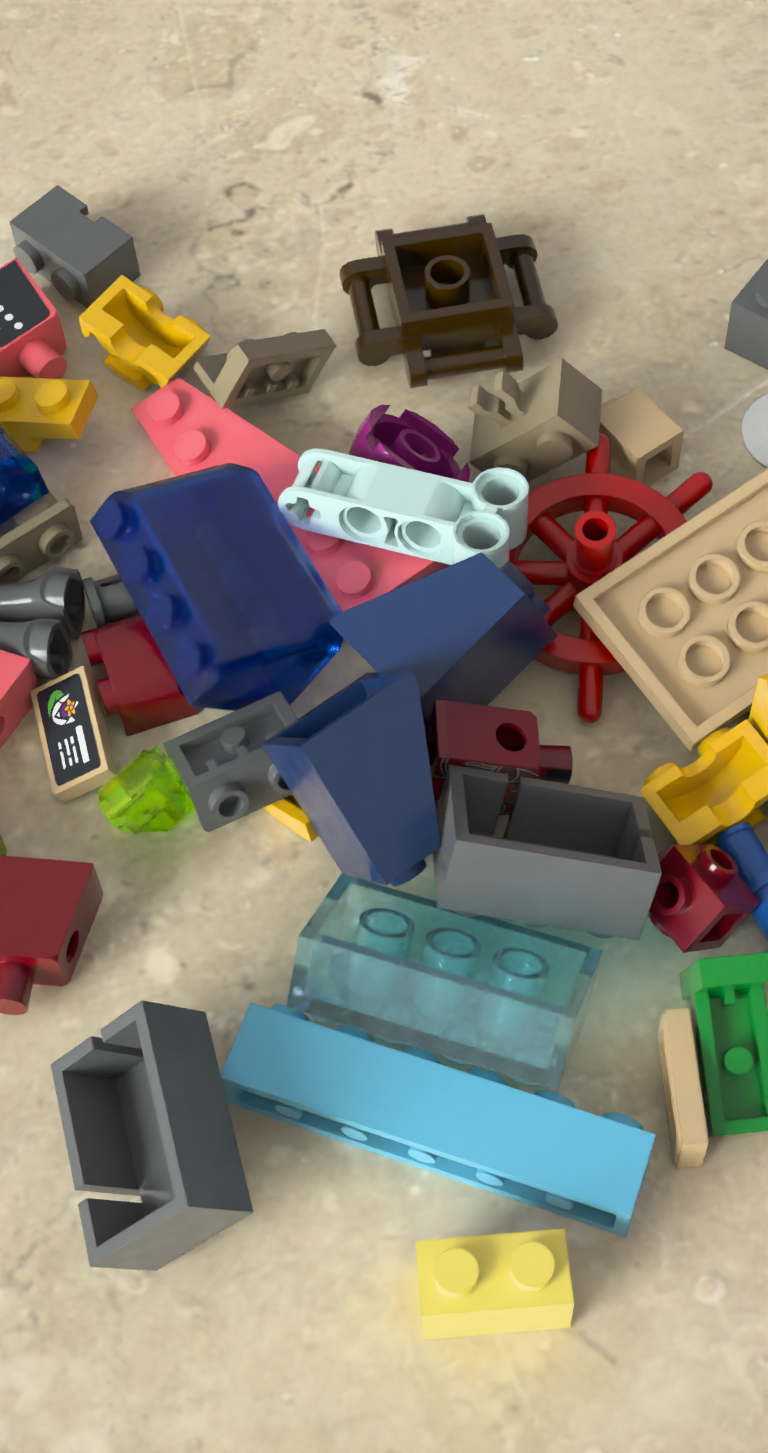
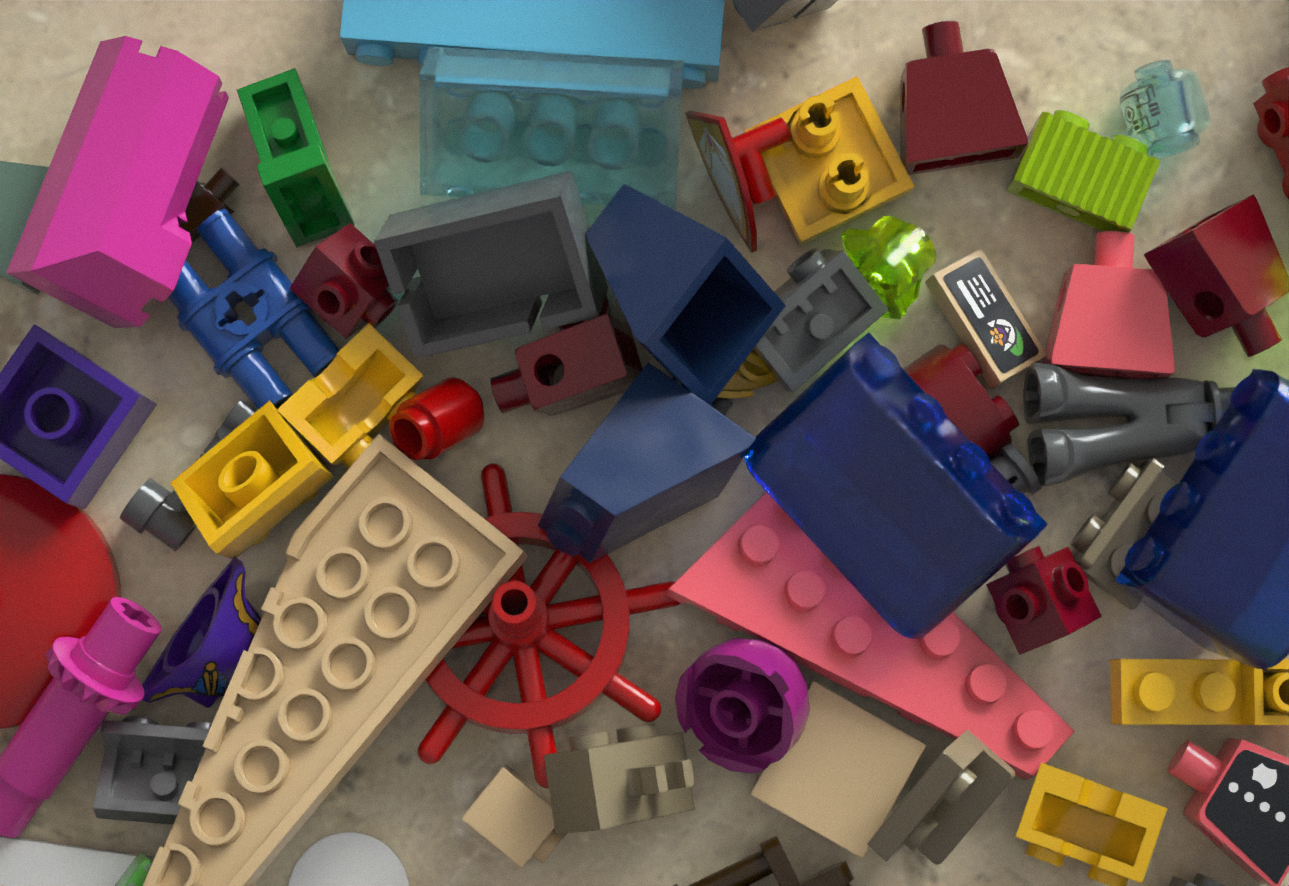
camera: 165 degrees right, 25 degrees up
(105, 471) = (1043, 598): none -> dark red brick
(169, 906) = (835, 162): none -> yellow plate
(254, 916) = (738, 166): none -> red shield
(331, 407) = (840, 772): none -> tan tile
(408, 507) = (722, 610): light aqua piece -> none
(632, 751) = (437, 419): none -> red brick
(682, 1088) = (329, 103): tan tile -> none

